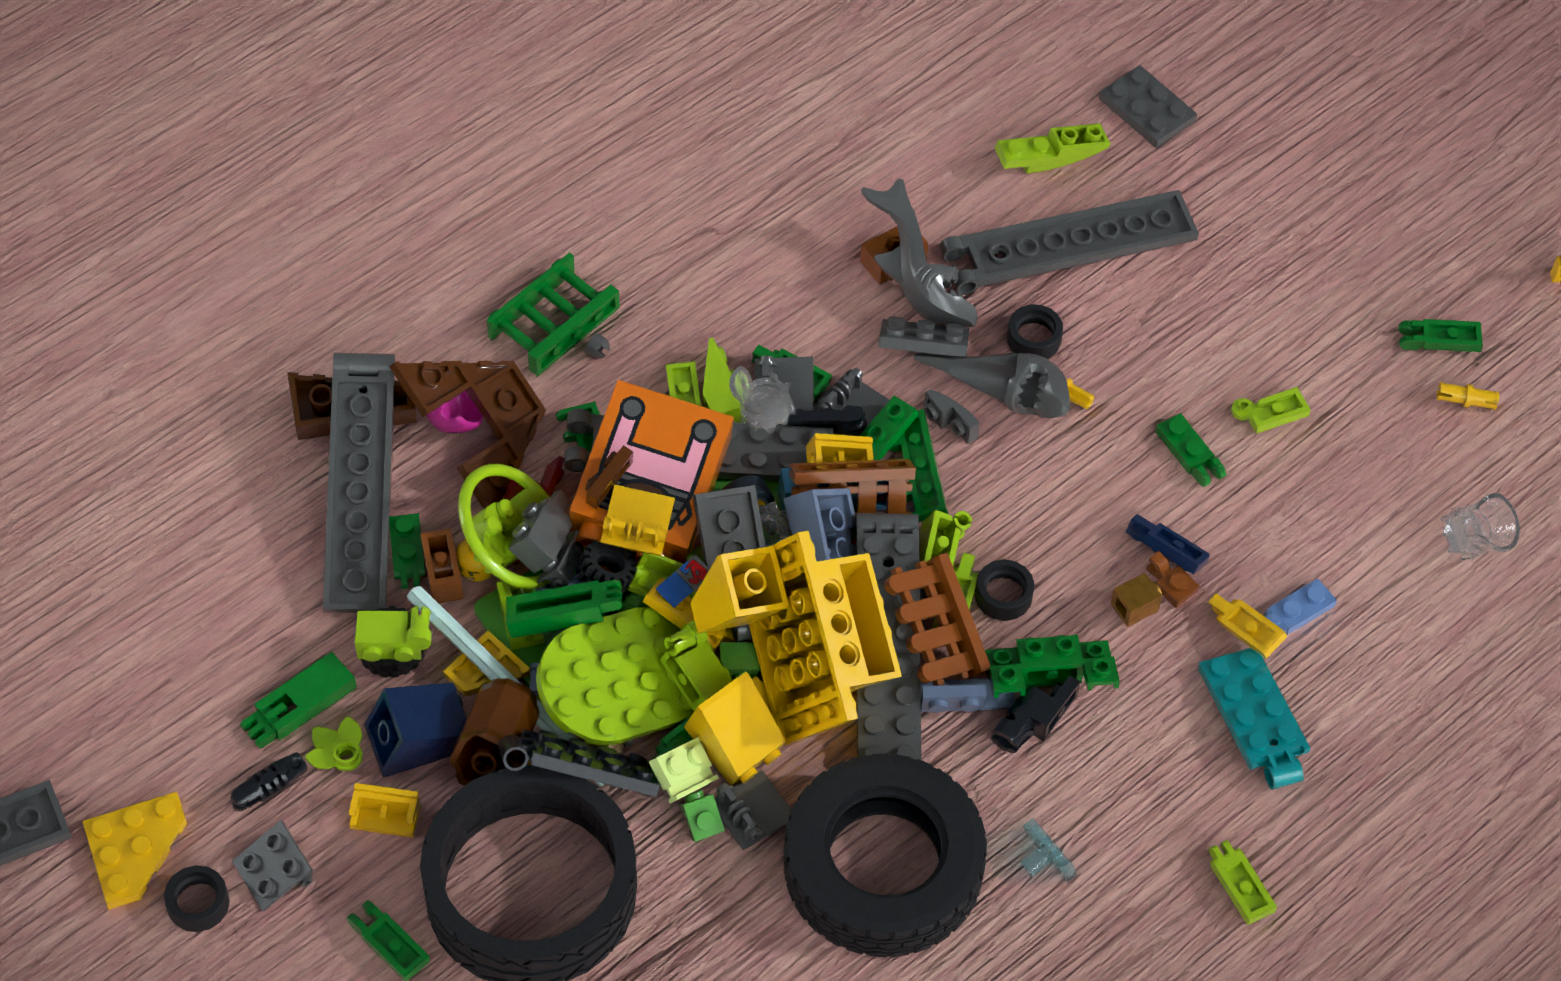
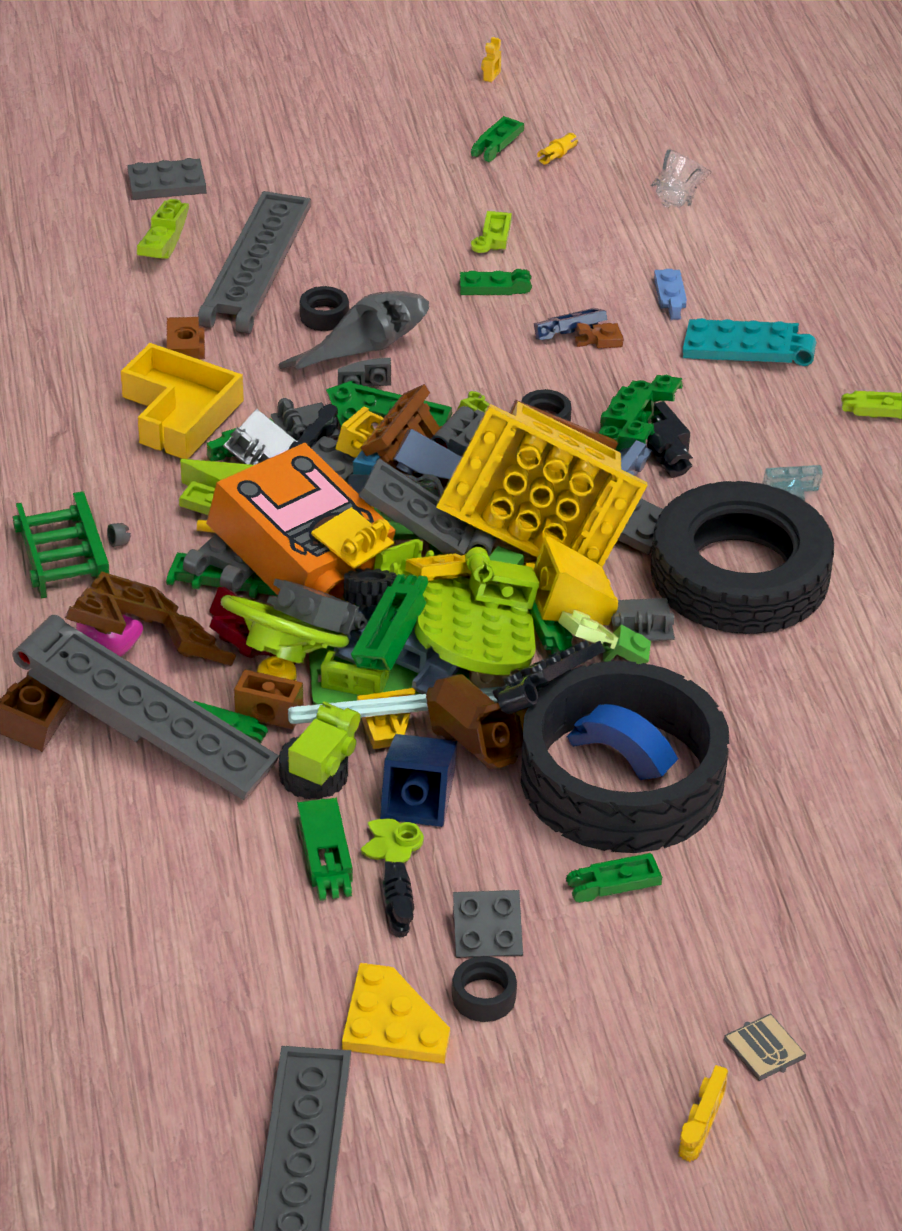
camera: 60 degrees left, 15 degrees down
(384, 810) = (483, 831): yellow hinge -> none
(556, 870) = (630, 735): none -> blue arch
(615, 467) = (306, 527): reddish brown plate -> none
(683, 581) = (424, 544): sticker -> none
(739, 590) = (488, 495): yellow slope -> none
(761, 401) = (281, 436): clear hat -> none
(804, 305) = (183, 398): none -> yellow piece
(907, 265) = (234, 331): dark grey piece -> none
(924, 337) = (281, 357): dark grey plate -> none
(1136, 599) = (609, 352): pearl gold brick -> none
(1248, 625) = (671, 311): yellow hinge -> none

